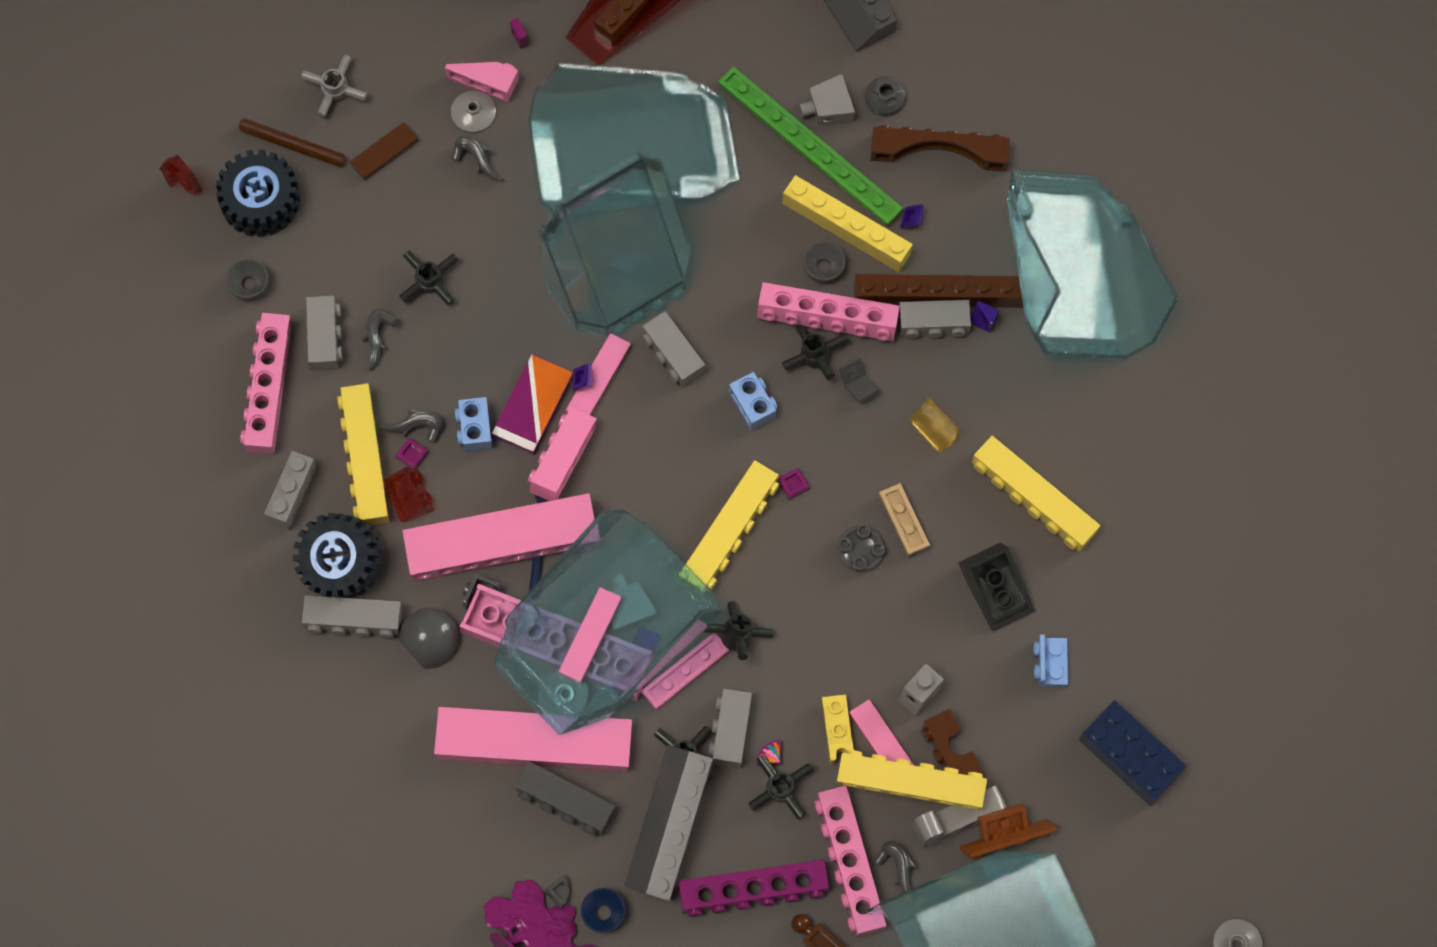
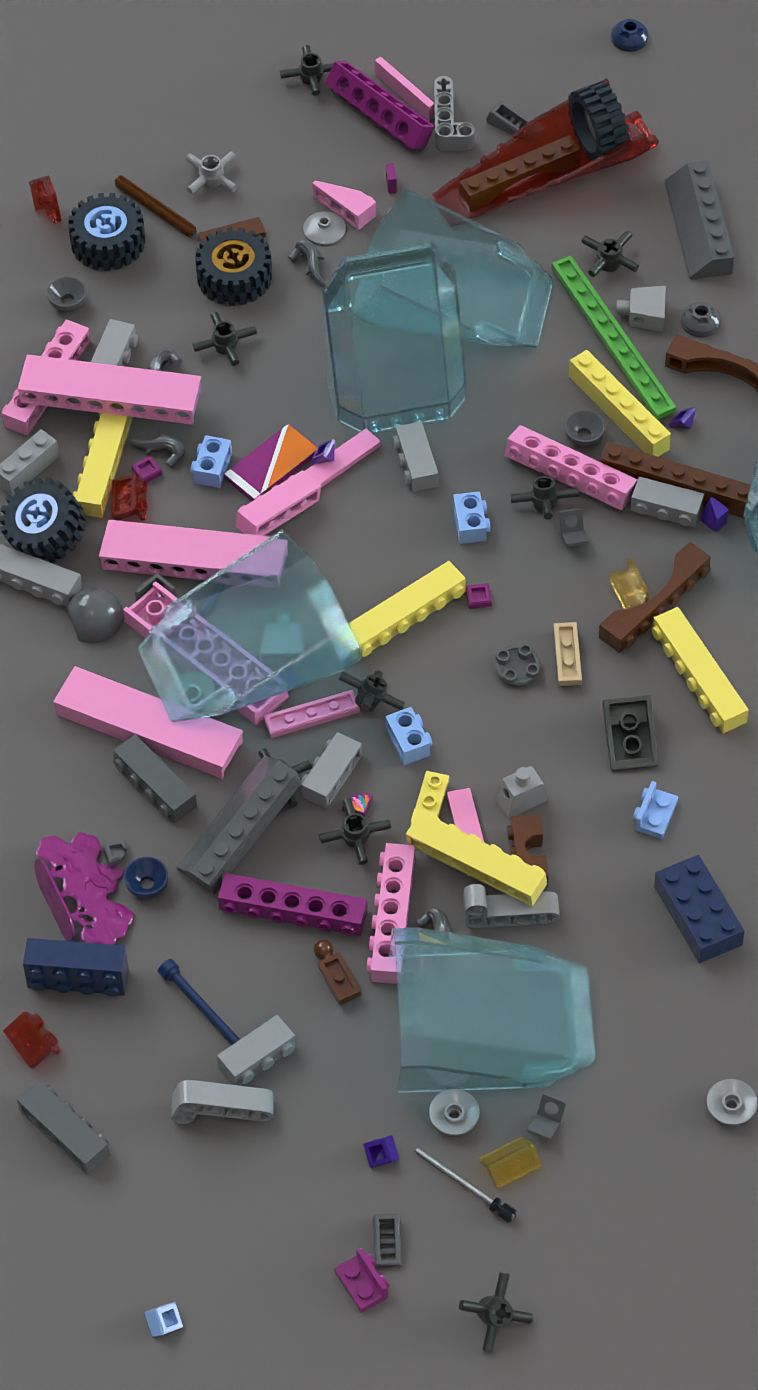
camera: 25 degrees right, 15 degrees down
(343, 383) = (107, 386): none -> bright pink tile
(396, 208) = (219, 274): none -> black wheel
(590, 635) = (234, 649): bright pink tile -> none
(776, 47) = (610, 254): none -> pearl dark grey bar
(783, 667) = (405, 736): none -> light blue brick
(947, 469) = (625, 625): none -> reddish brown arch
(1005, 829) = (548, 928): dark orange bracket -> none

